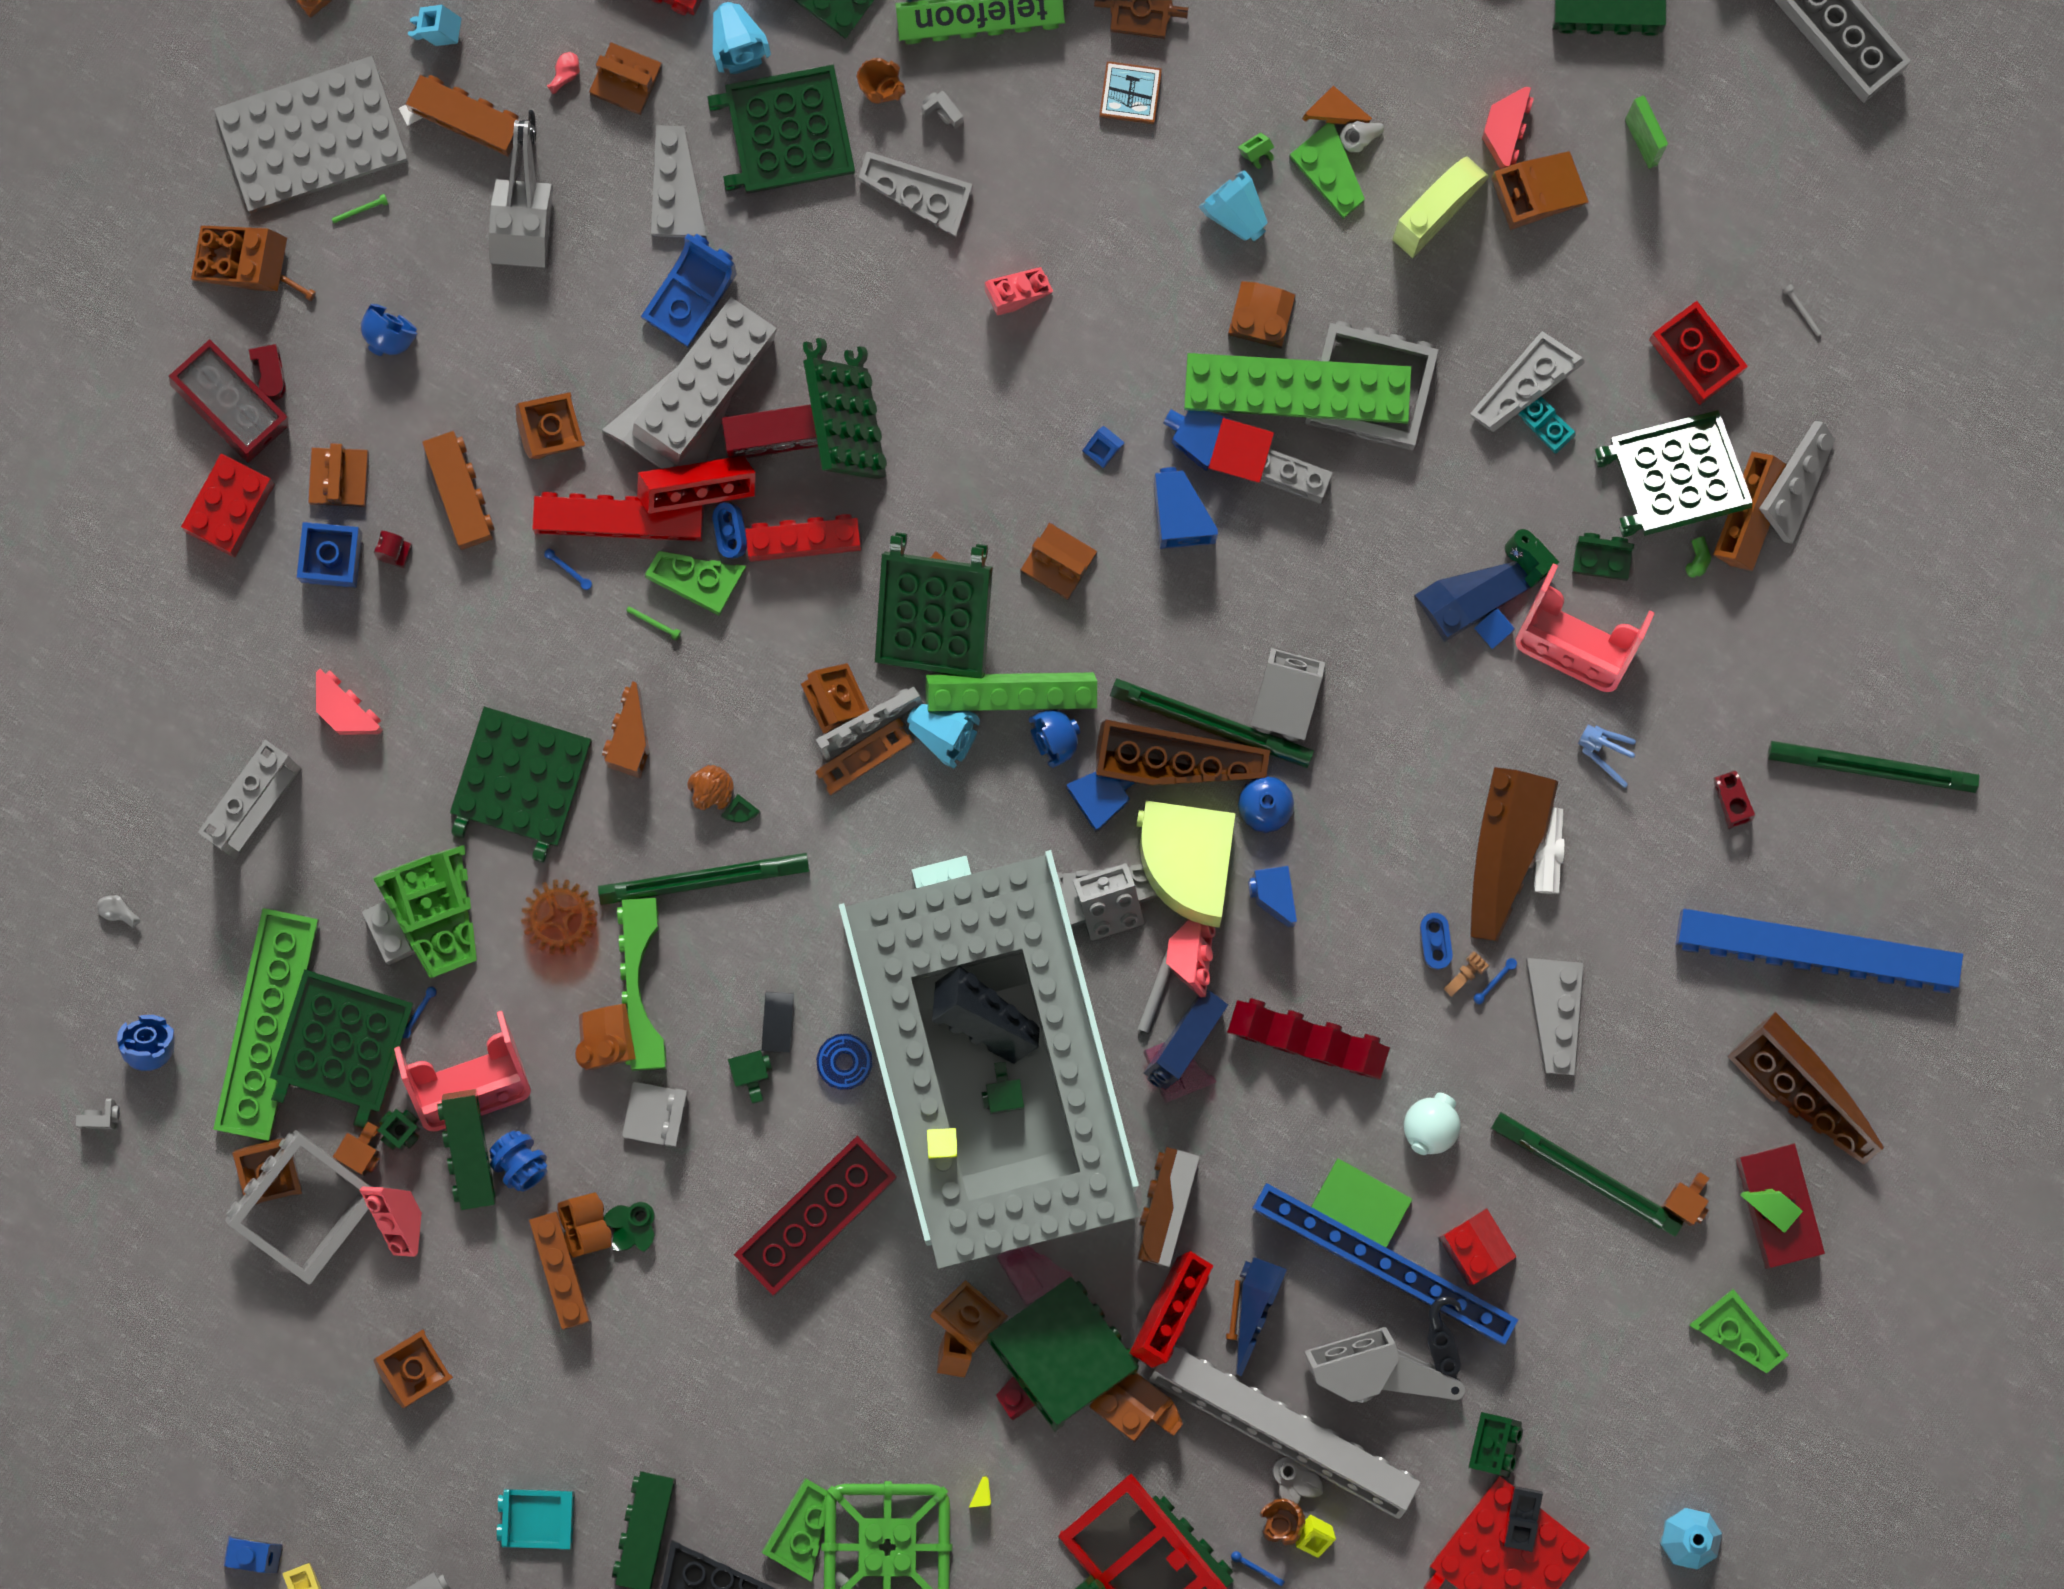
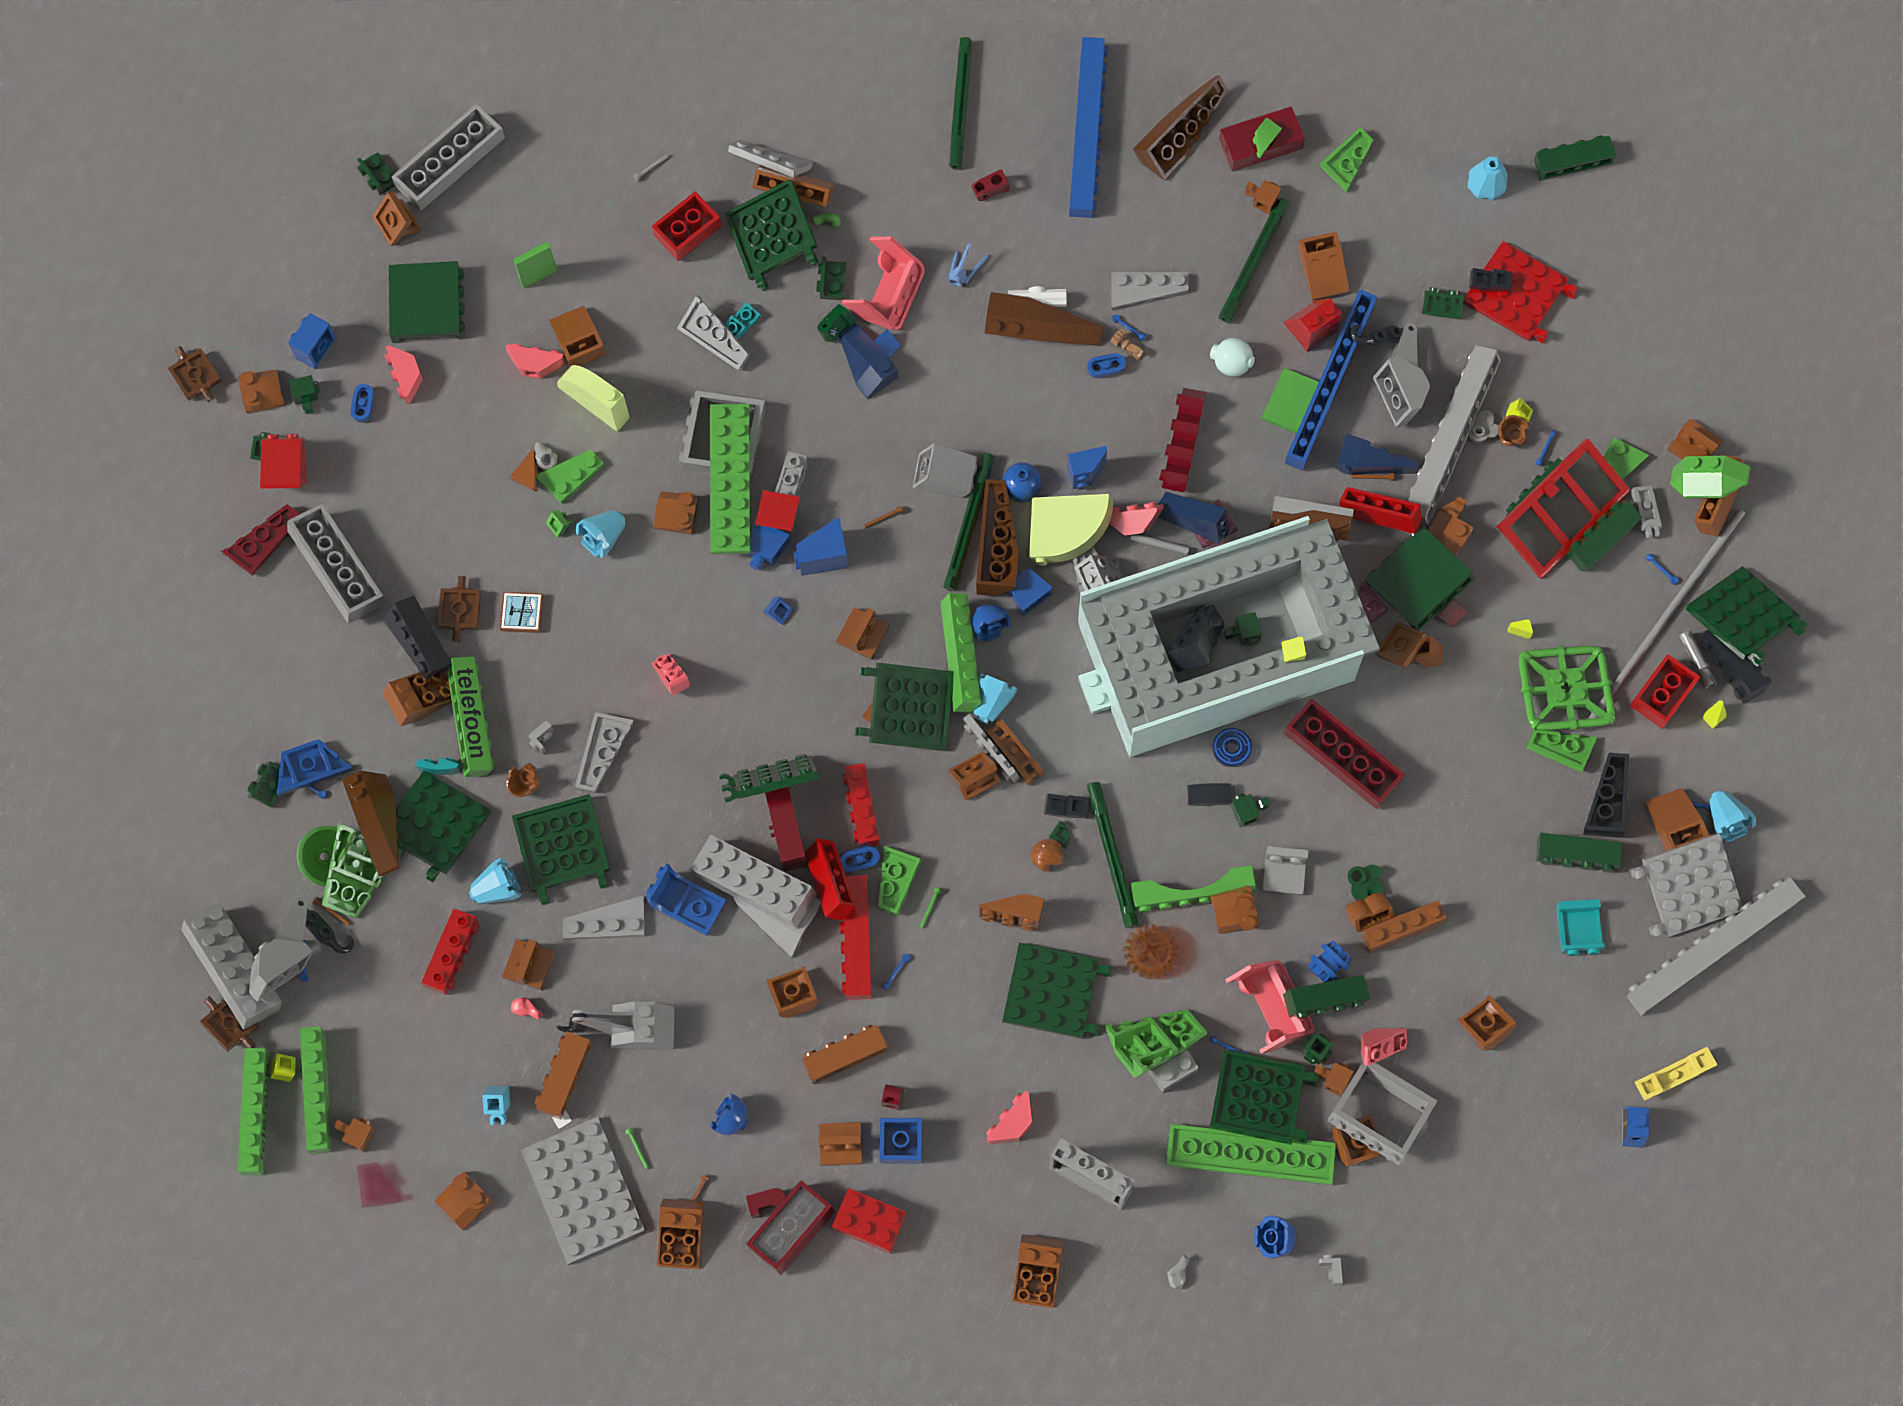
camera: 90 degrees left, 10 degrees down
(140, 723) = (1037, 1271): none -> dark orange slope
(779, 822) = (1066, 806): none -> black slope
(1239, 626) = (899, 510): none -> dark orange piece
(1565, 1274) = (1323, 265): none -> dark orange slope

